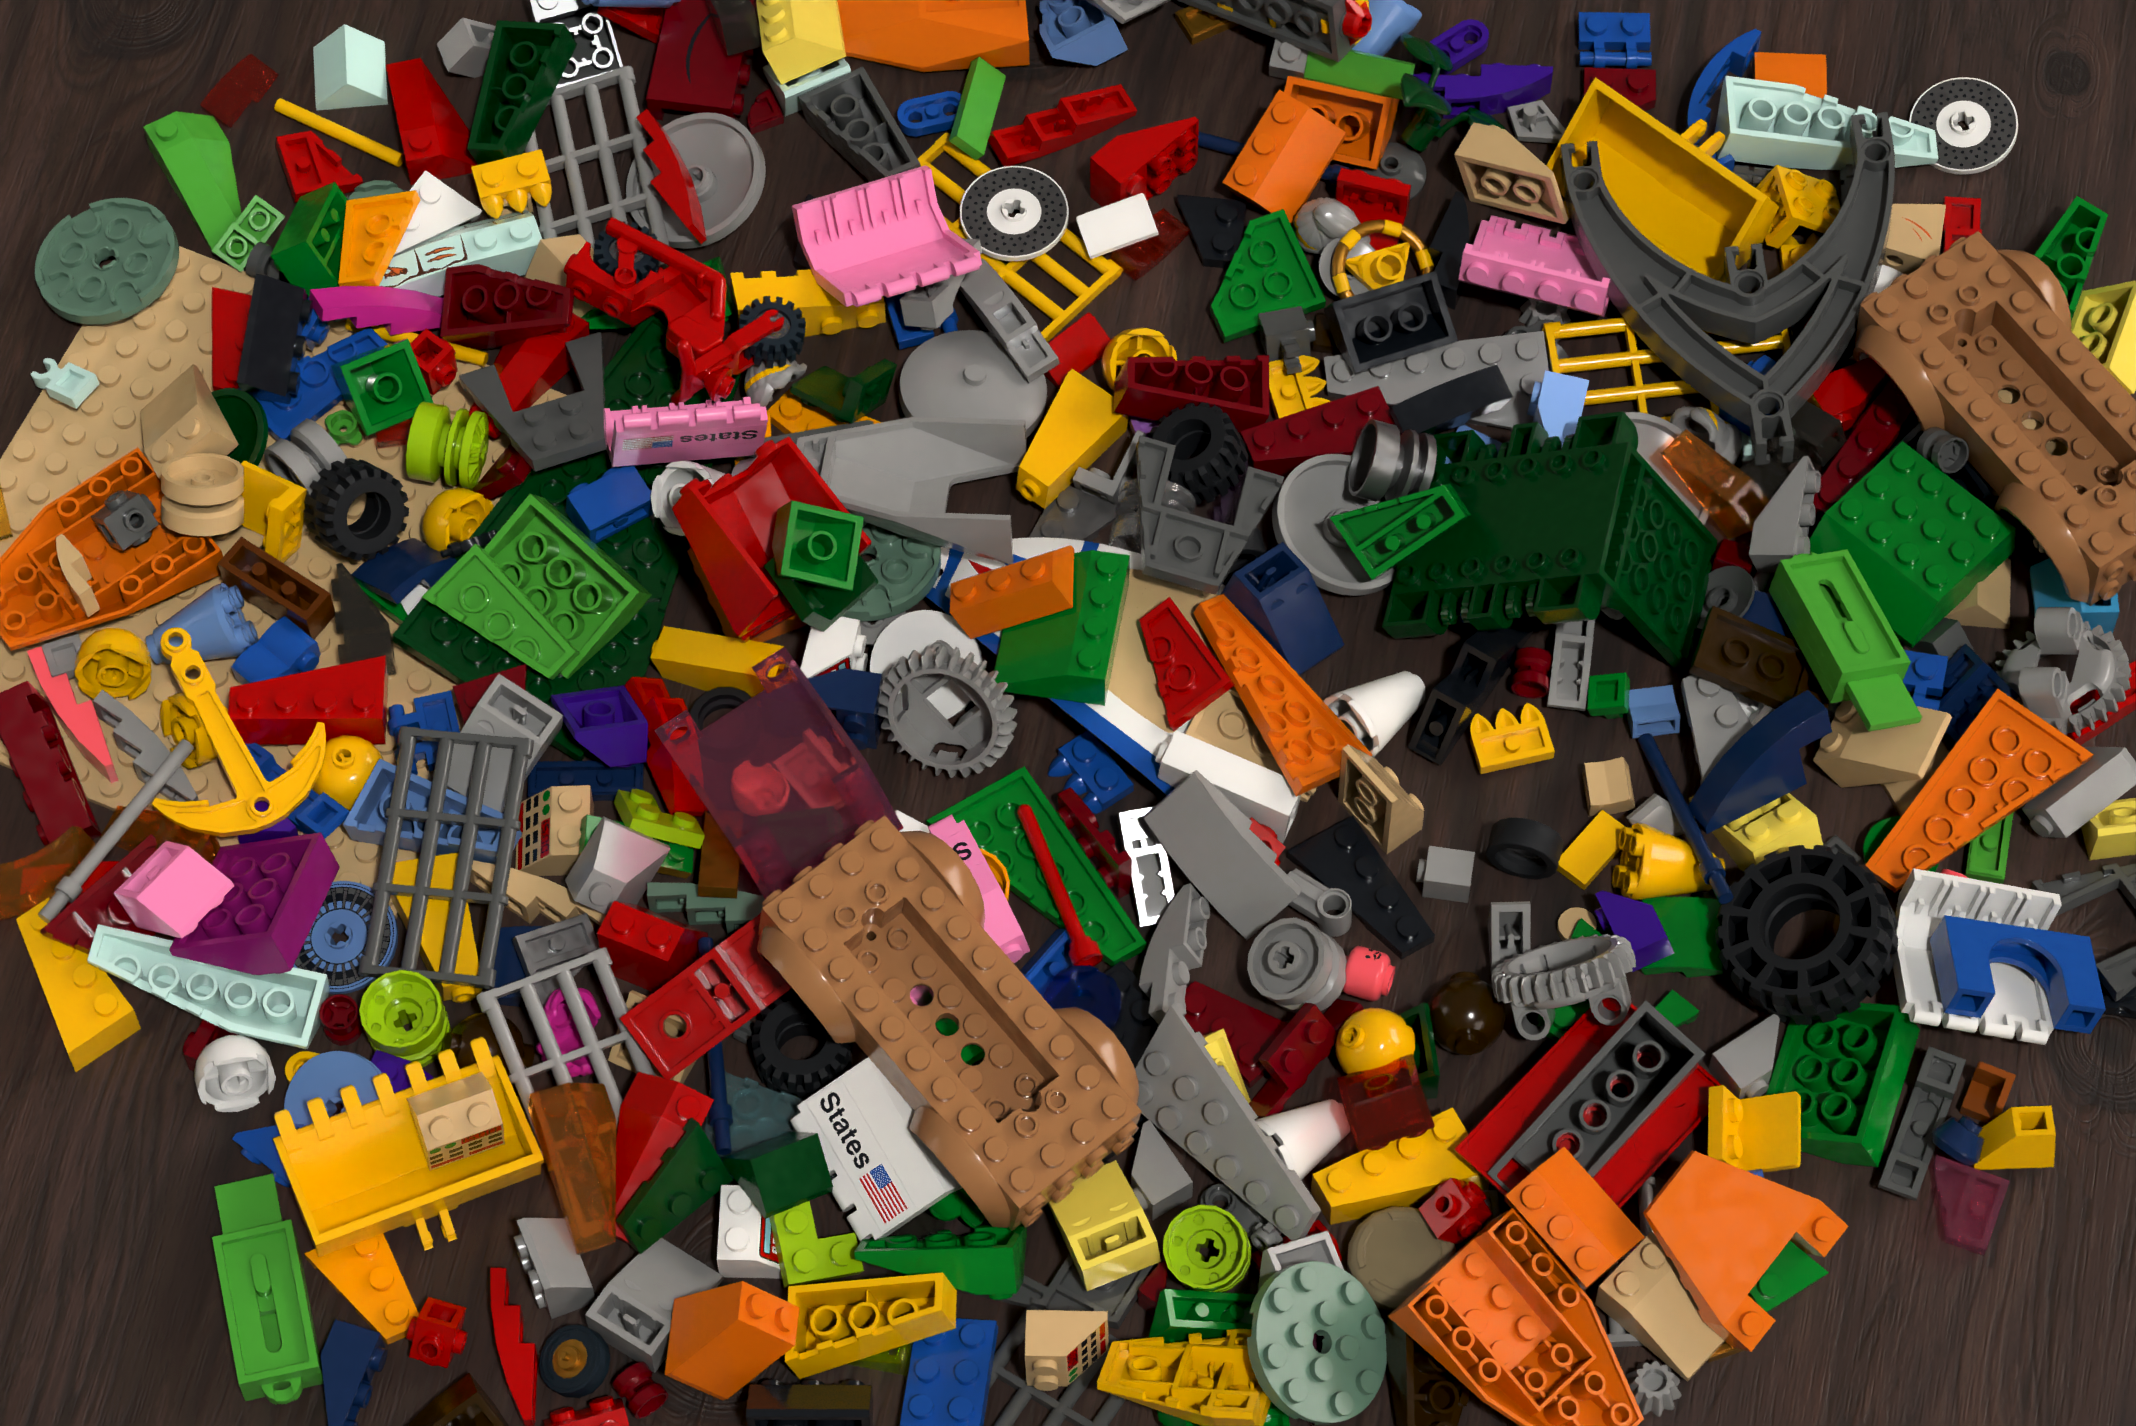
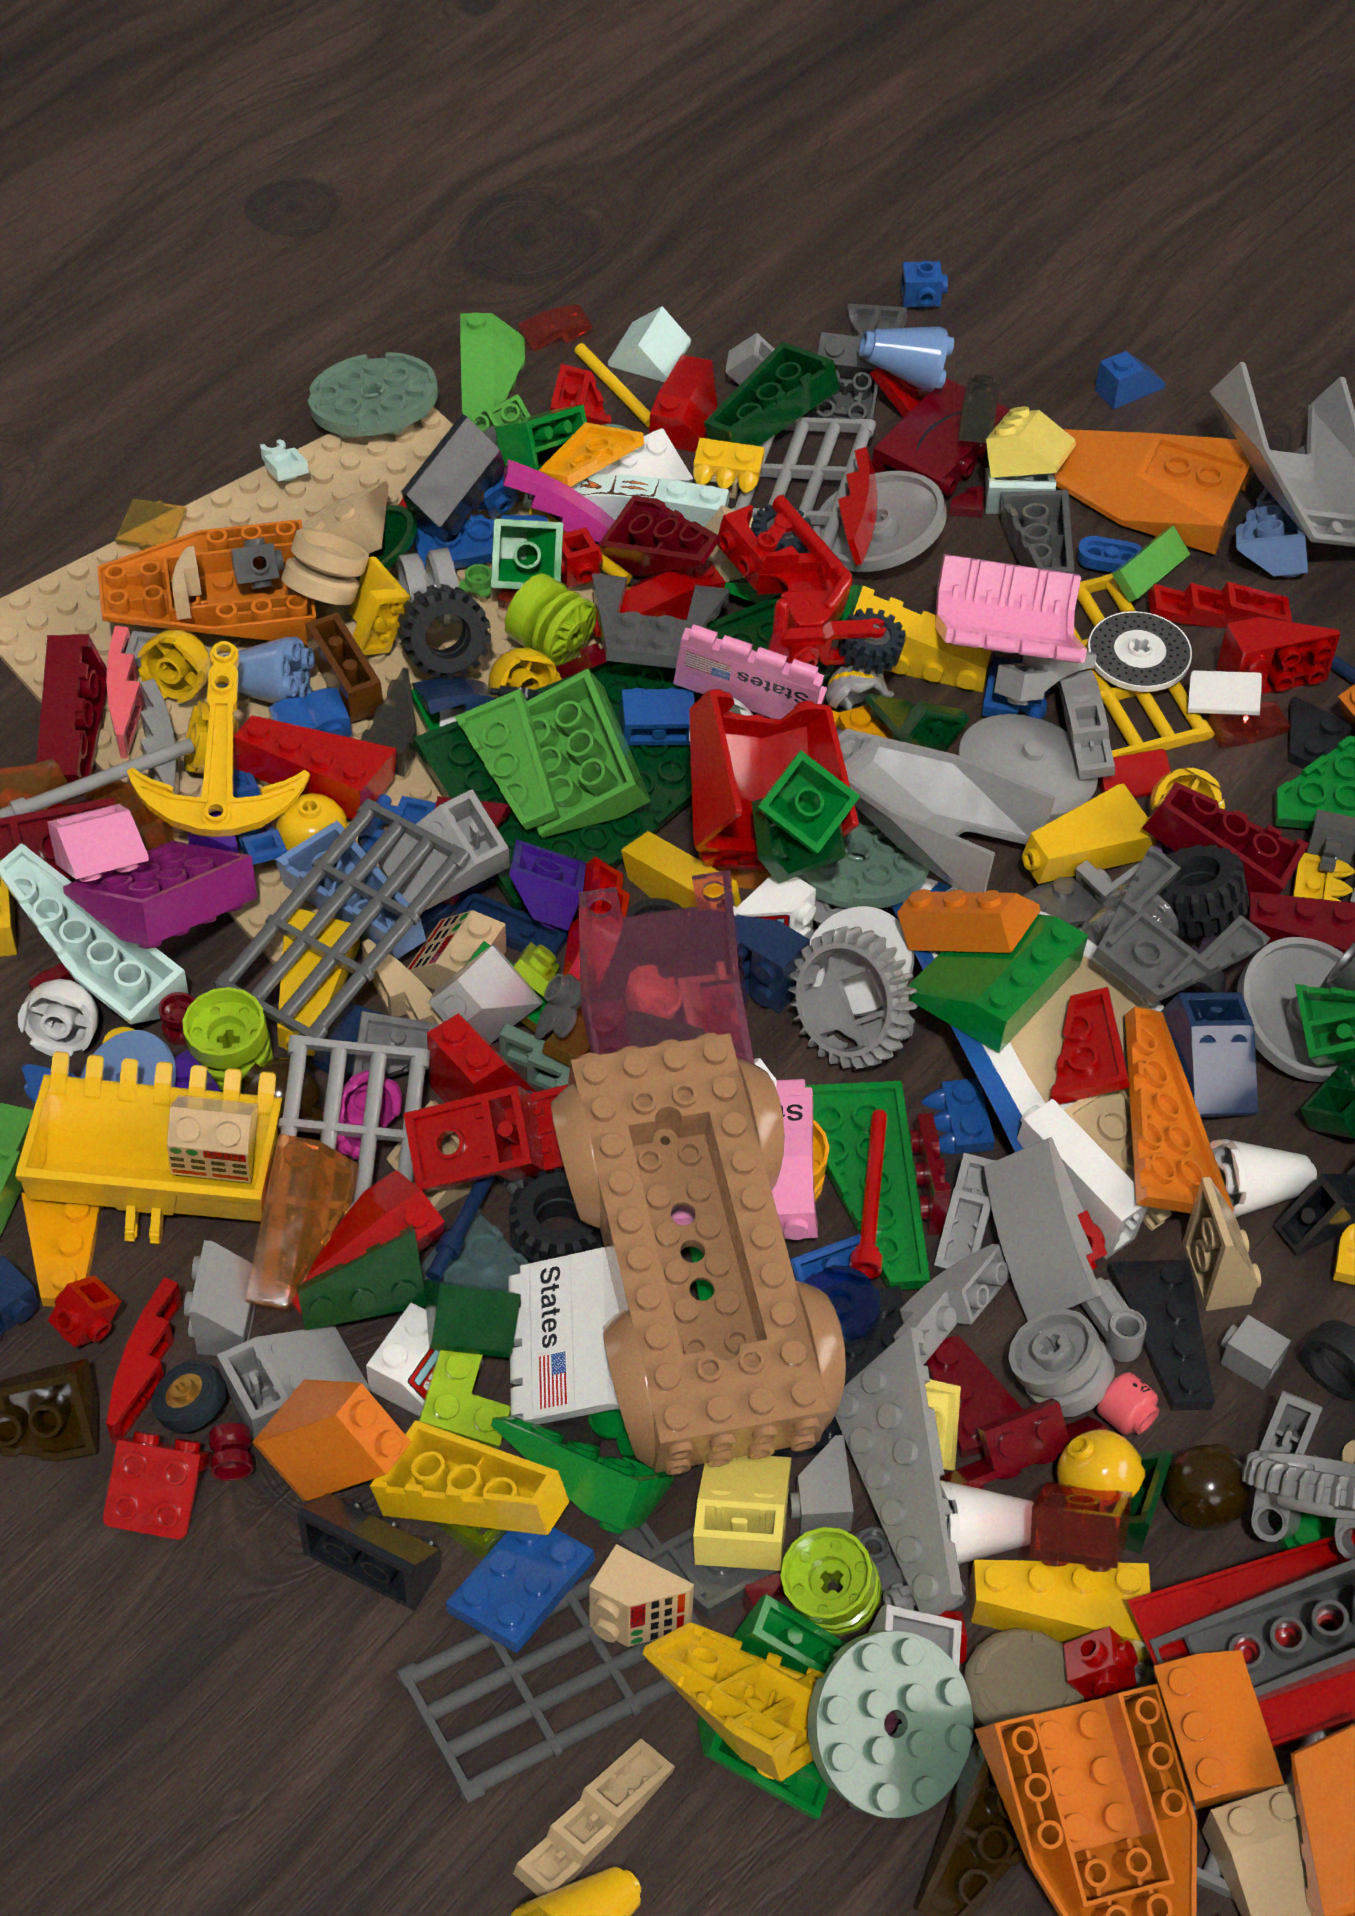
camera: 25 degrees right, 10 degrees down
(347, 908) = (229, 933): medium blue piece -> none
(694, 845) = (560, 1012): none -> dark grey plate

